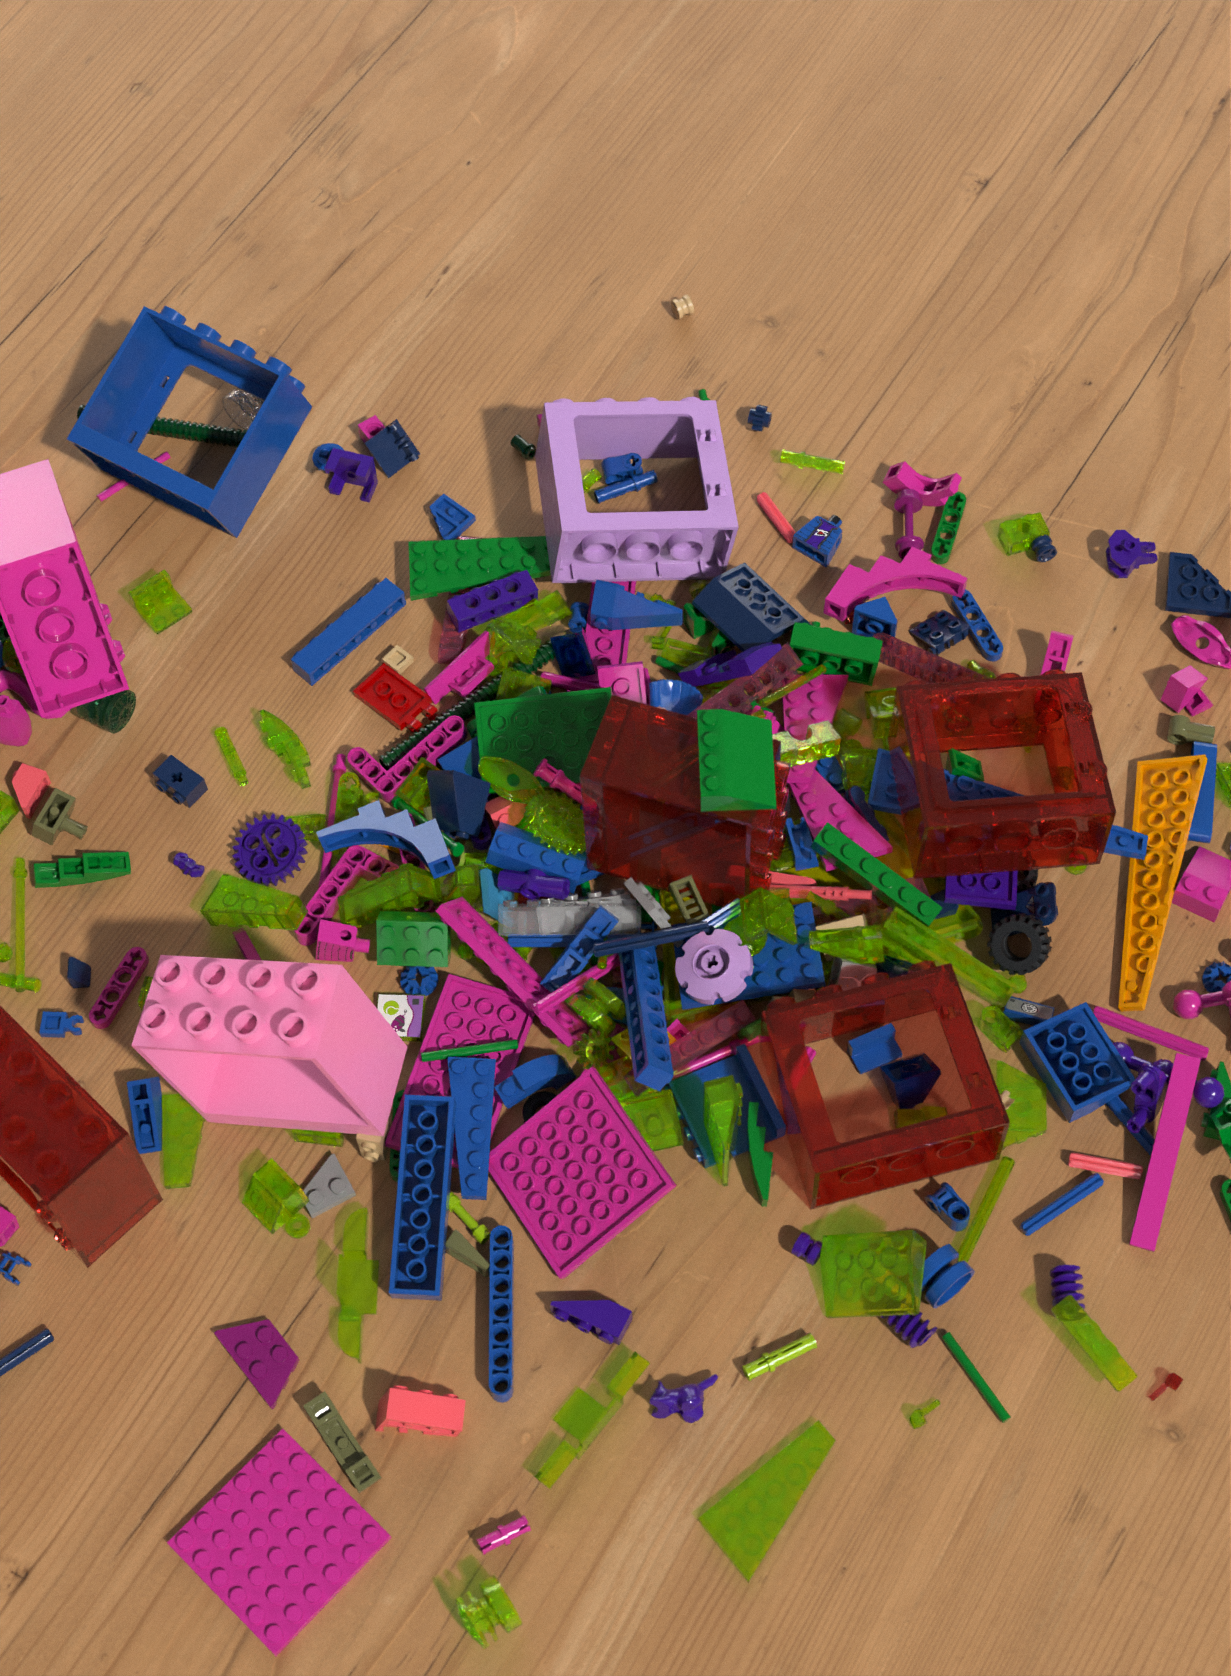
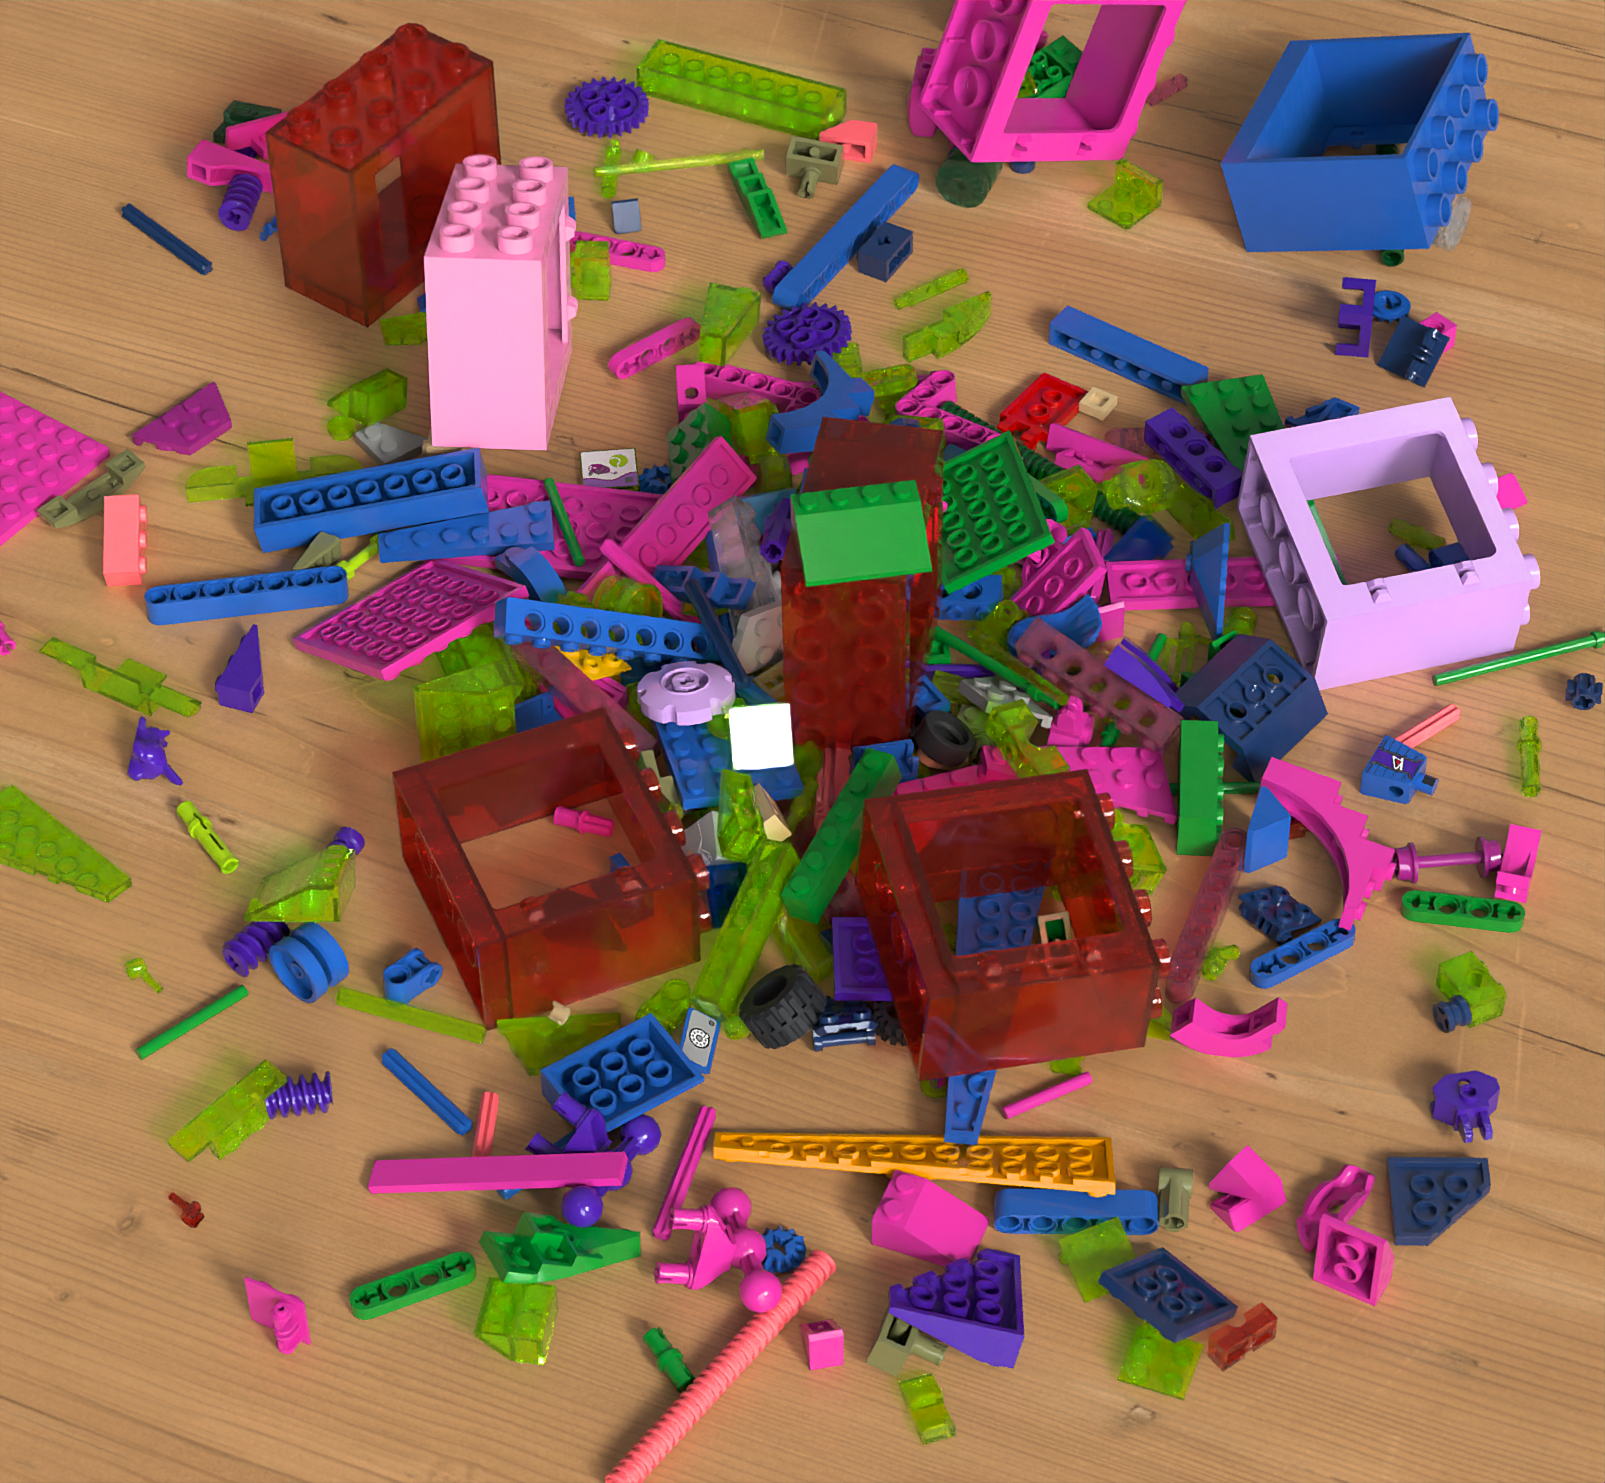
camera: 80 degrees right, 15 degrees down
(154, 808) = (845, 238): none -> blue beam
(788, 688) = (1128, 743): clear neon green bar -> none

